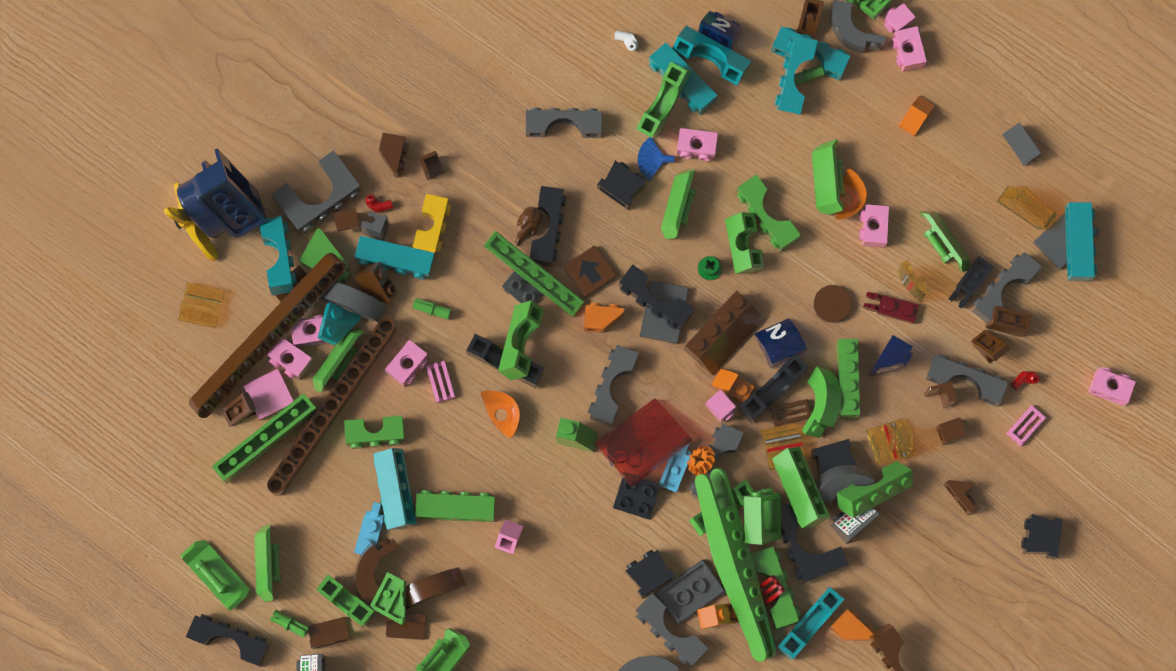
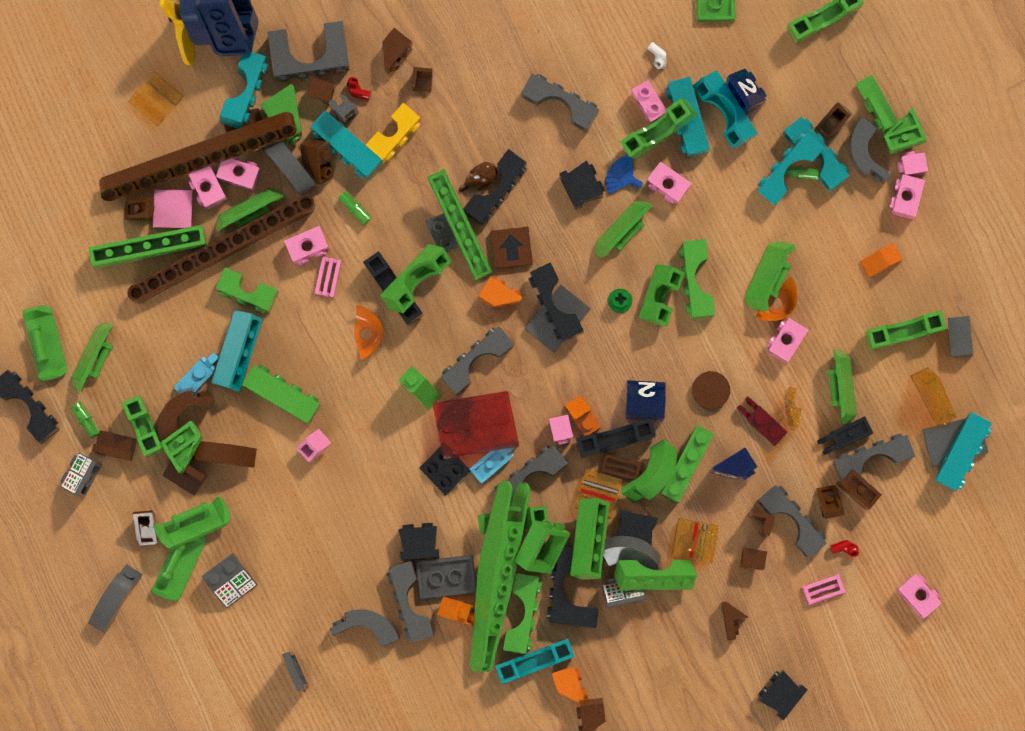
camera: 30 degrees right, 5 degrees up
(336, 323) = (263, 178): teal wing -> none
(641, 83) = (648, 102): none -> bright pink brick
(702, 466) = (513, 474): orange gear -> none
(724, 333) = (600, 365): reddish brown slope -> none
(776, 584) = (523, 612): red tile -> none
(972, 164) = (905, 331): none -> bright green arch

